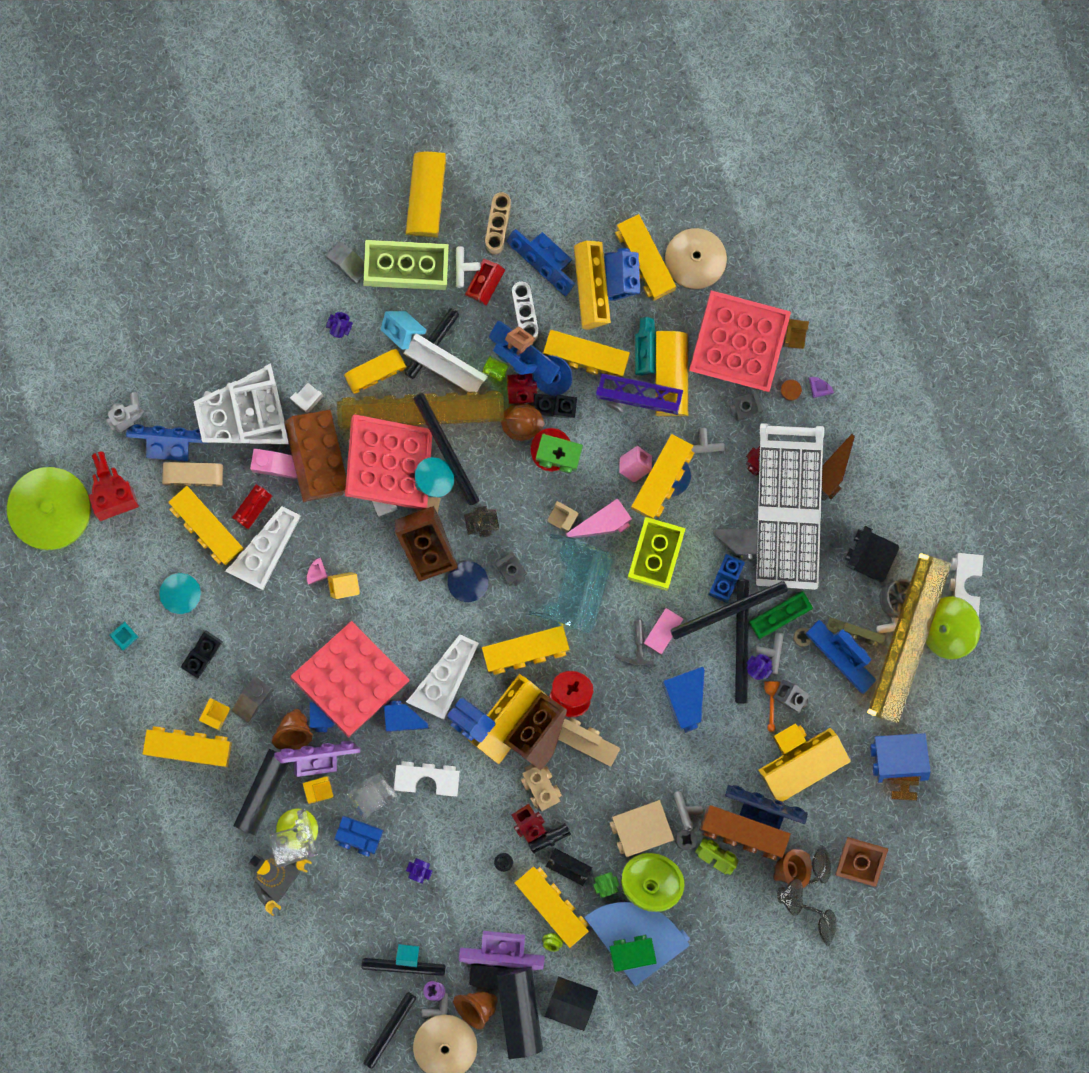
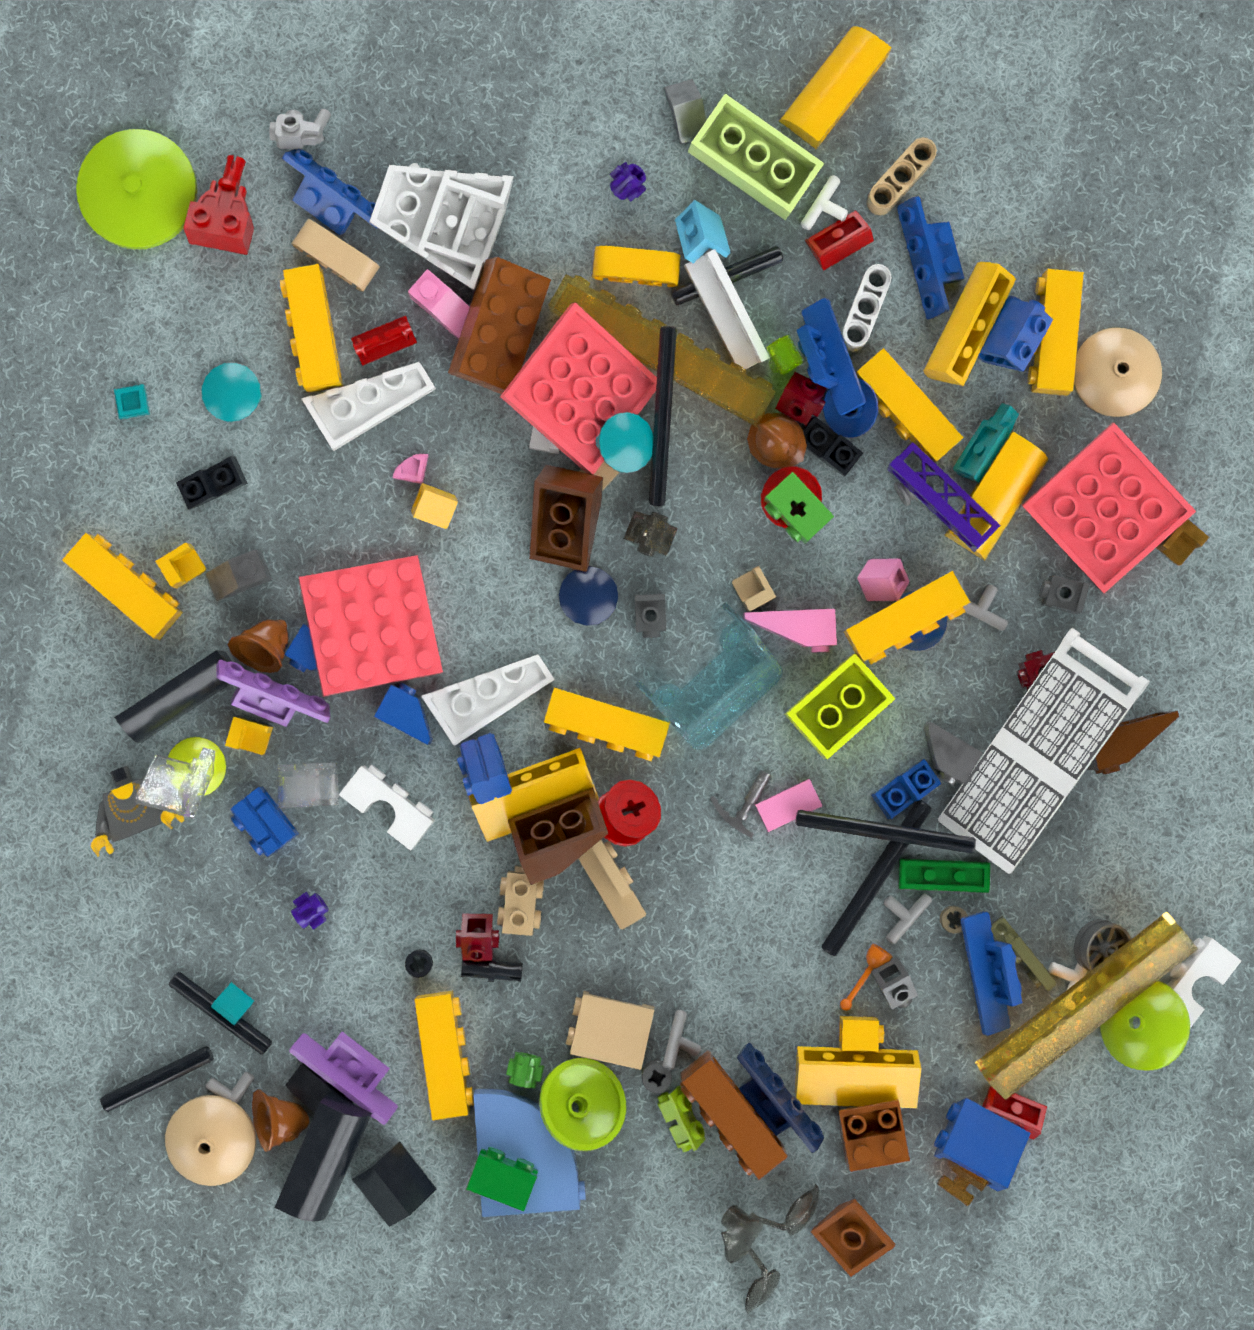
camera: 30 degrees right, 5 degrees up
(306, 398) = (532, 248): white panel -> none
(429, 994) = (246, 1067): medium lavender bush -> none
(519, 339) = (837, 336): nougat tile -> none
(552, 942) = (416, 1097): lime plate -> none
(569, 867) = (494, 1019): black hinge -> none
(686, 698) = (764, 907): blue slope -> none
(759, 666) = (878, 923): dark purple gear -> none
(791, 390) = (1131, 607): dark orange tile -> none
(794, 865) = (764, 1197): dark orange piece -> none
(819, 387) = (1168, 626): medium lavender tile -> none
(834, 792) = (873, 1135): none -> dark orange slope
(871, 554) = (1102, 872): black bracket -> none
(911, 725) = (1017, 1110): none -> red slope

